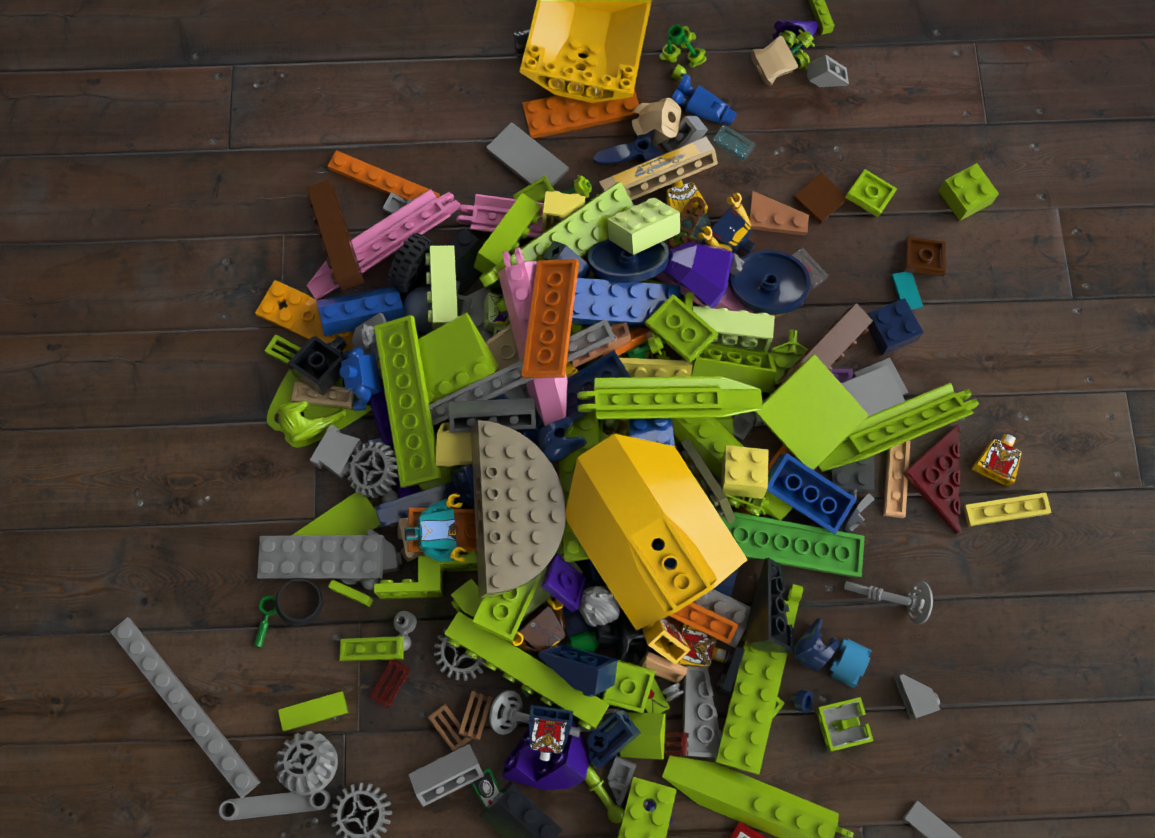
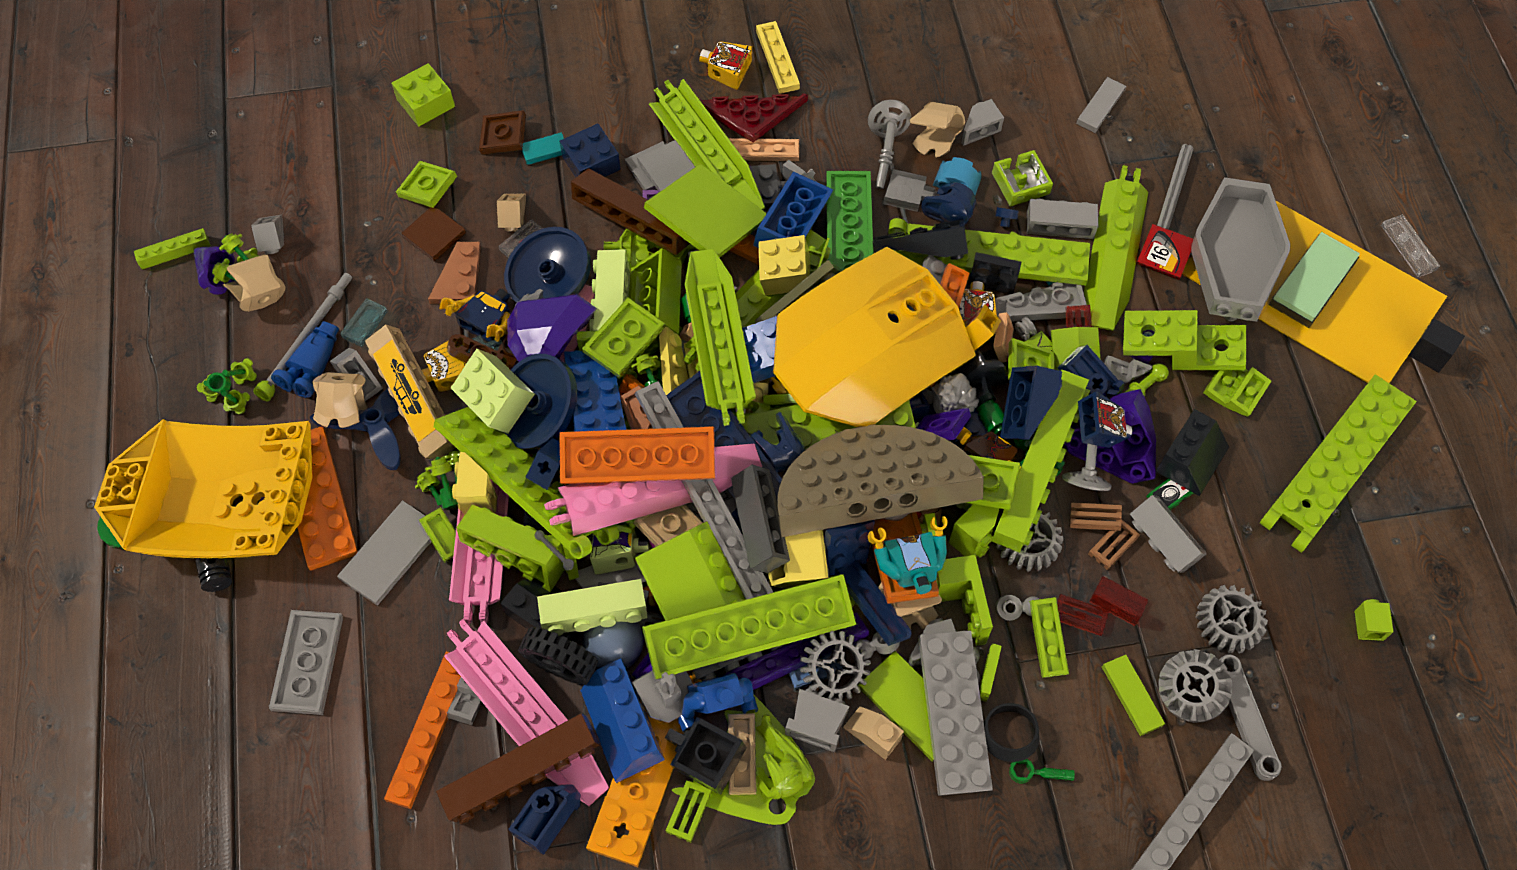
camera: 95 degrees left, 10 degrees down
(299, 251) = (540, 824): none -> dark blue piece
(320, 494) = (874, 731): none -> tan slope
(397, 719) = (1119, 601): none -> clear red panel
(449, 103) = (306, 662): none -> light grey tile
(476, 268) = (568, 564): none -> dark grey hinge
(764, 122) = (334, 294): none -> light grey bar
(794, 755) = (1062, 218): none -> light grey brick
(838, 258) = (511, 211): none -> tan slope
(839, 611) = (907, 190): none -> light grey piece
(908, 648) = (942, 126): none -> tan piece

